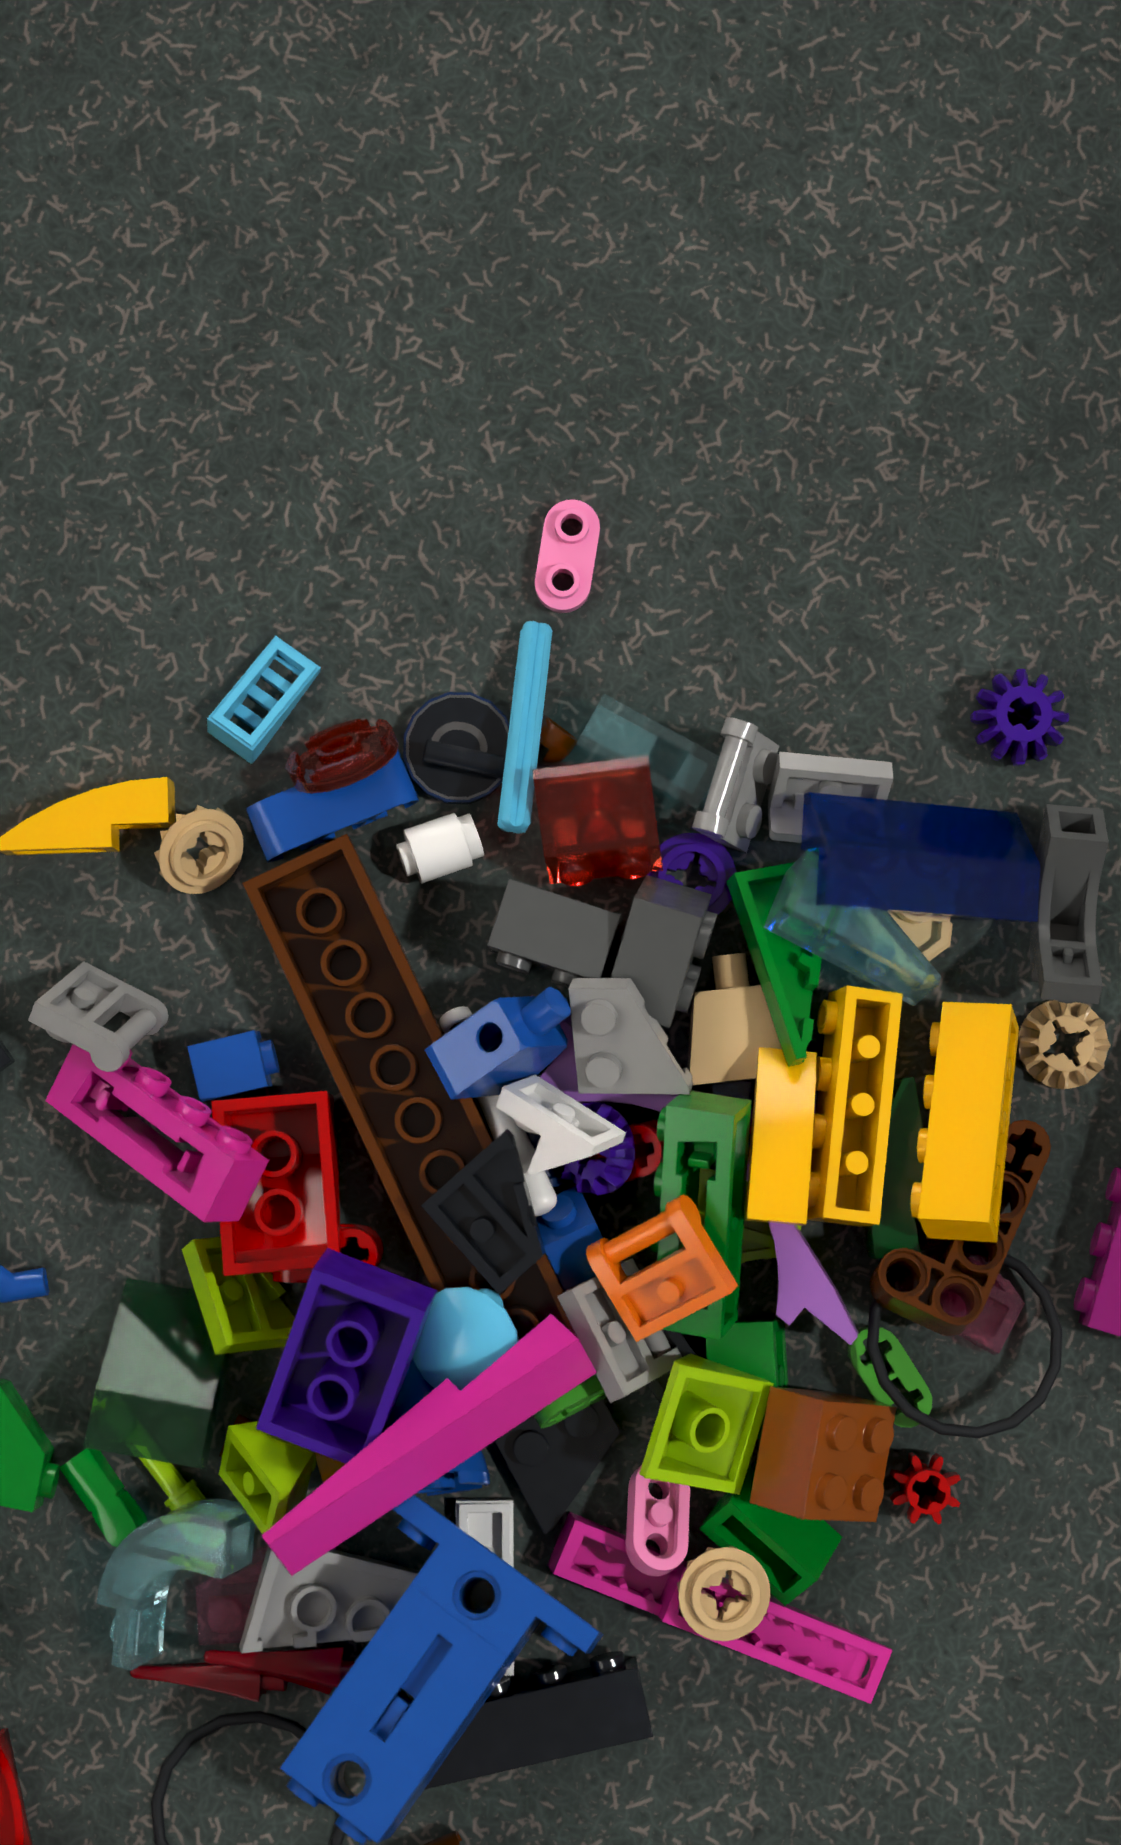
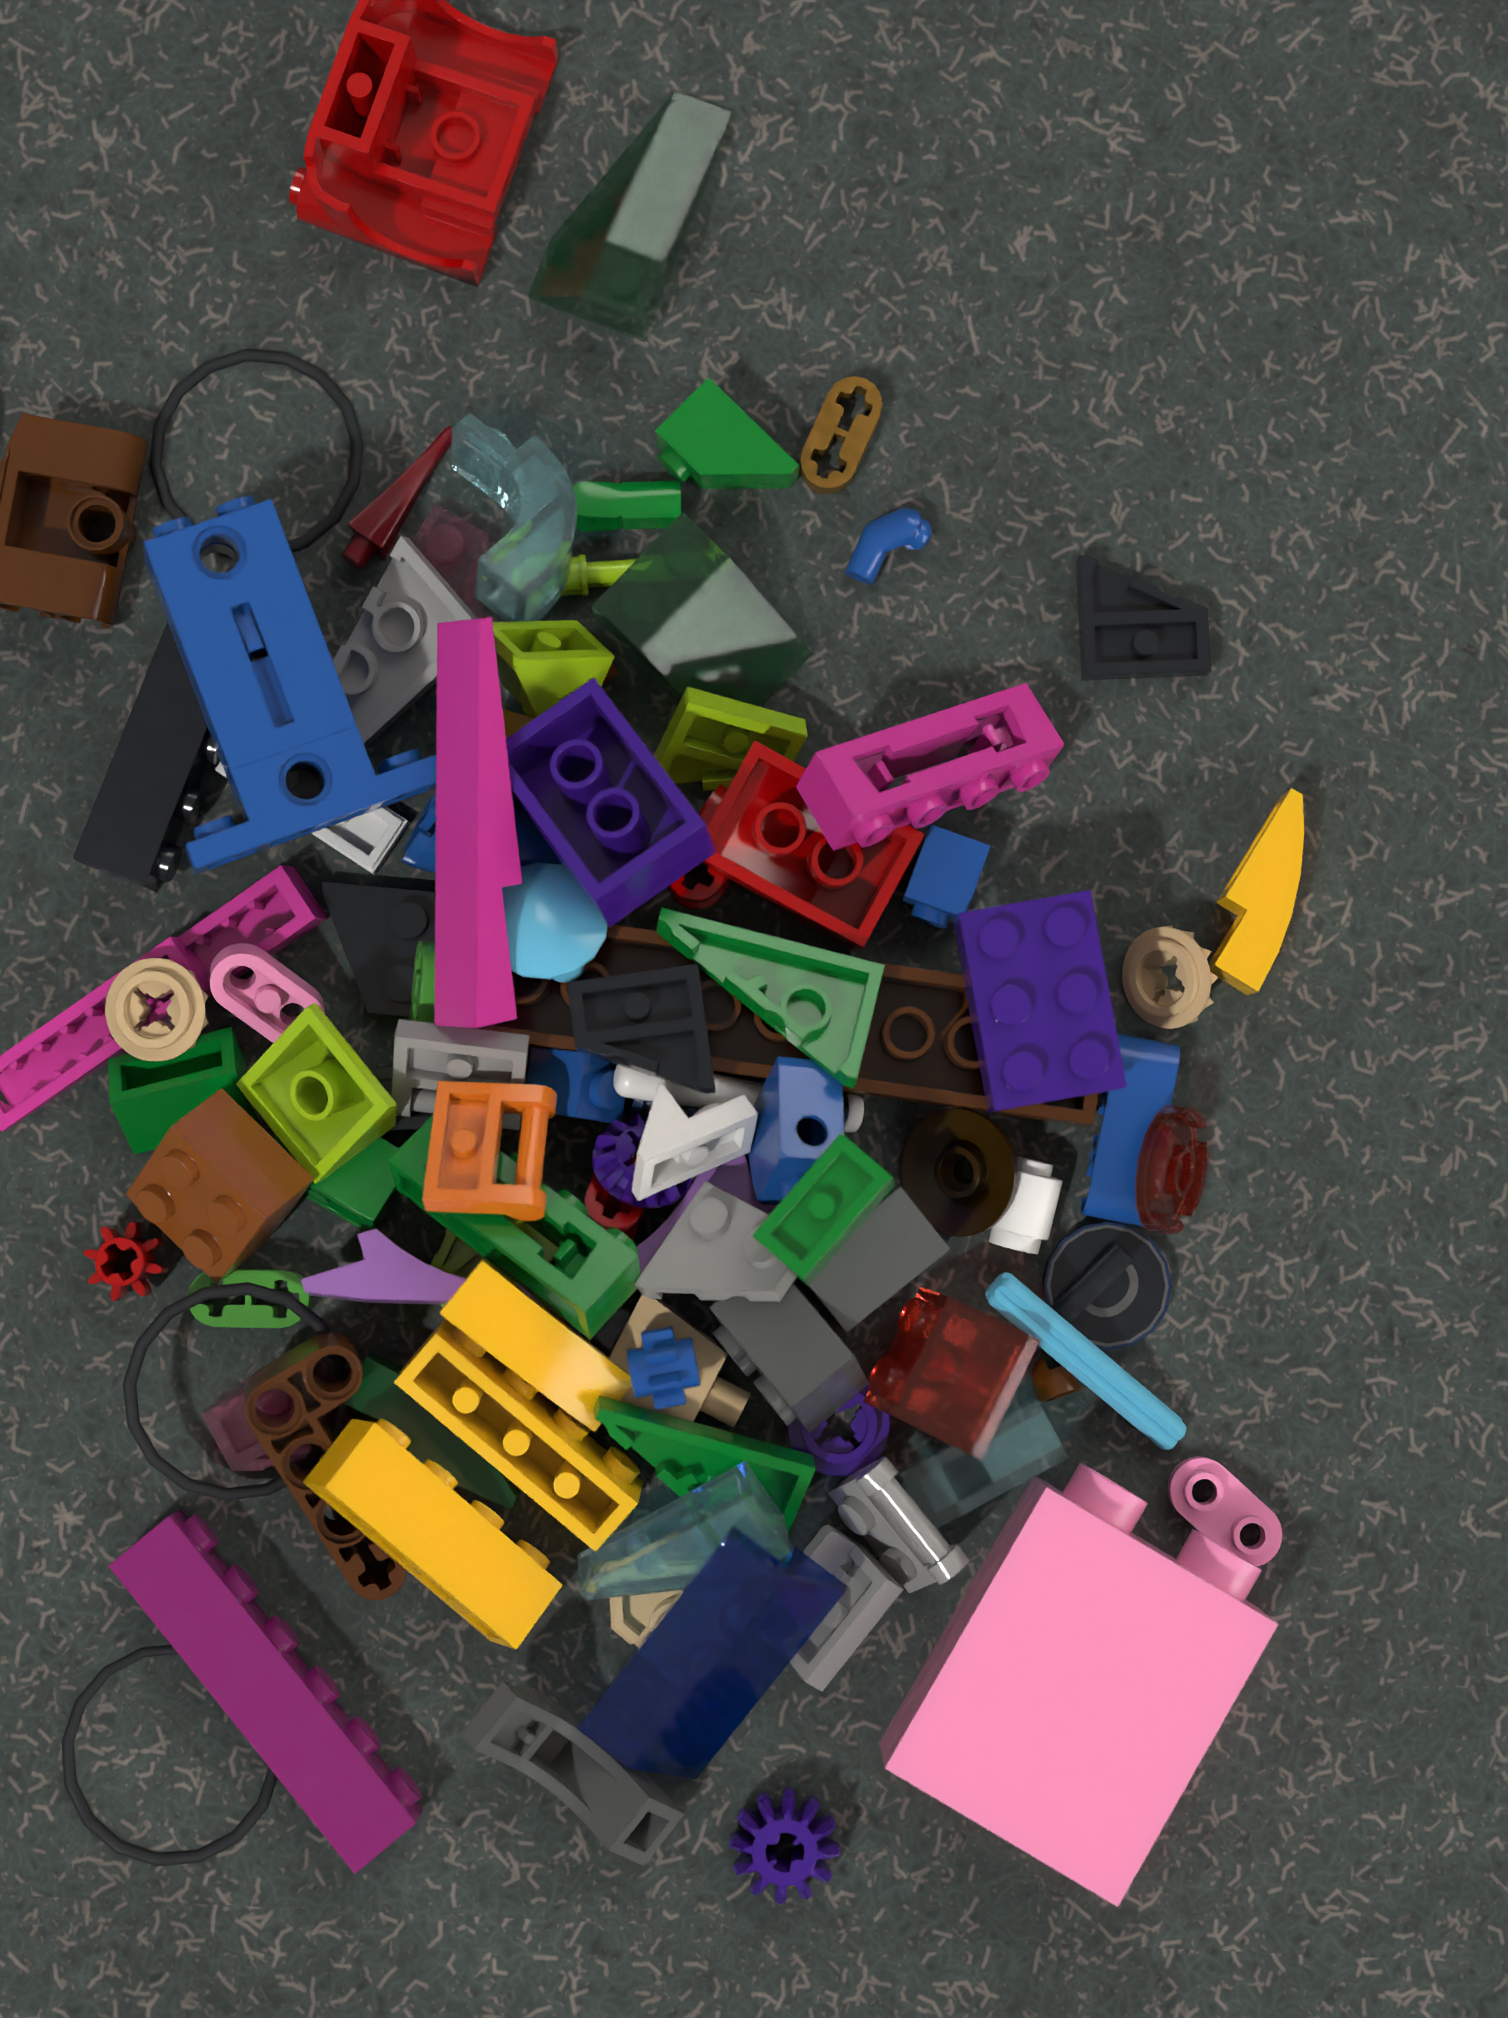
camera: 125 degrees right, 0 degrees up
(85, 1002) = (1093, 778): light grey plate -> none
(252, 745) = (1236, 1091): medium azure slope -> none
(281, 933) = (1039, 1001): none -> dark purple brick
(310, 1668) = (345, 590): dark red piece -> none
(390, 1115) = (801, 991): none -> green wing
(459, 929) = (934, 1174): none -> dark brown dish
(541, 990) = (824, 1209): none -> green panel
(735, 1032) = (663, 1367): none -> blue gear
(758, 582) = (1080, 1681): none -> bright pink brick
(1038, 1034) = (471, 1655): tan gear -> none

